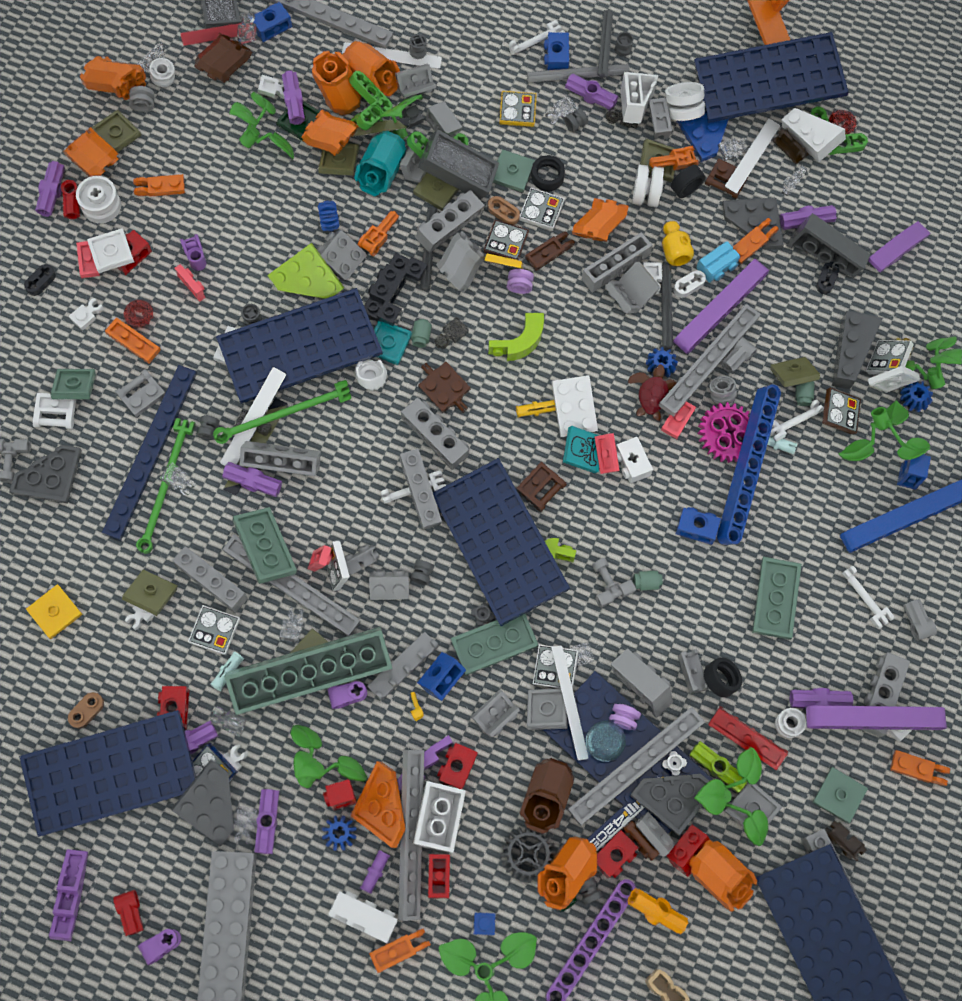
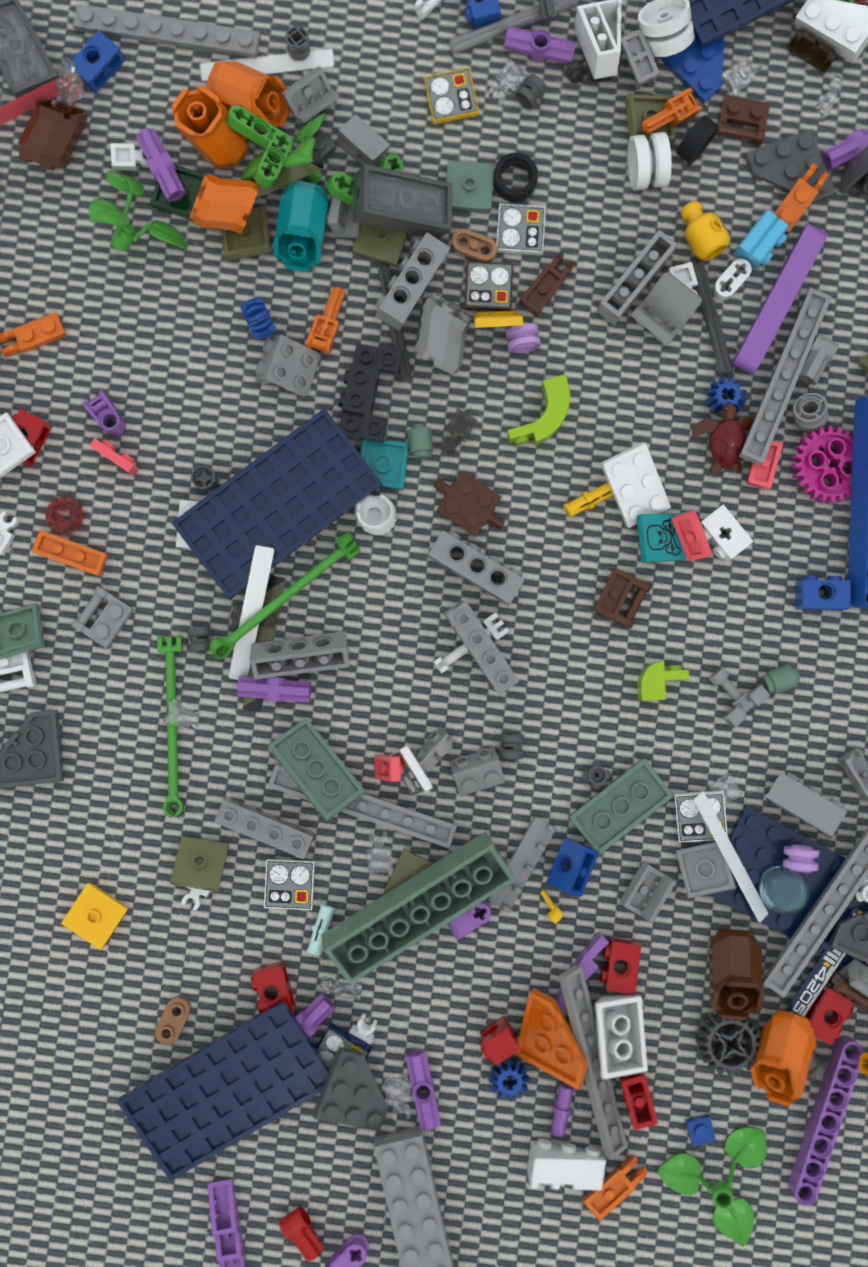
camera: 10 degrees left, 15 degrees up
(149, 453) = (139, 688): dark blue plate -> none
(306, 275) = (256, 406): lime plate -> none
(309, 769) = (455, 1030): bright green plant -> none
(500, 542) = (595, 685): dark blue plate -> none
(600, 220) = (602, 226): orange brick -> none
(752, 156) = (768, 78): white sticker -> none

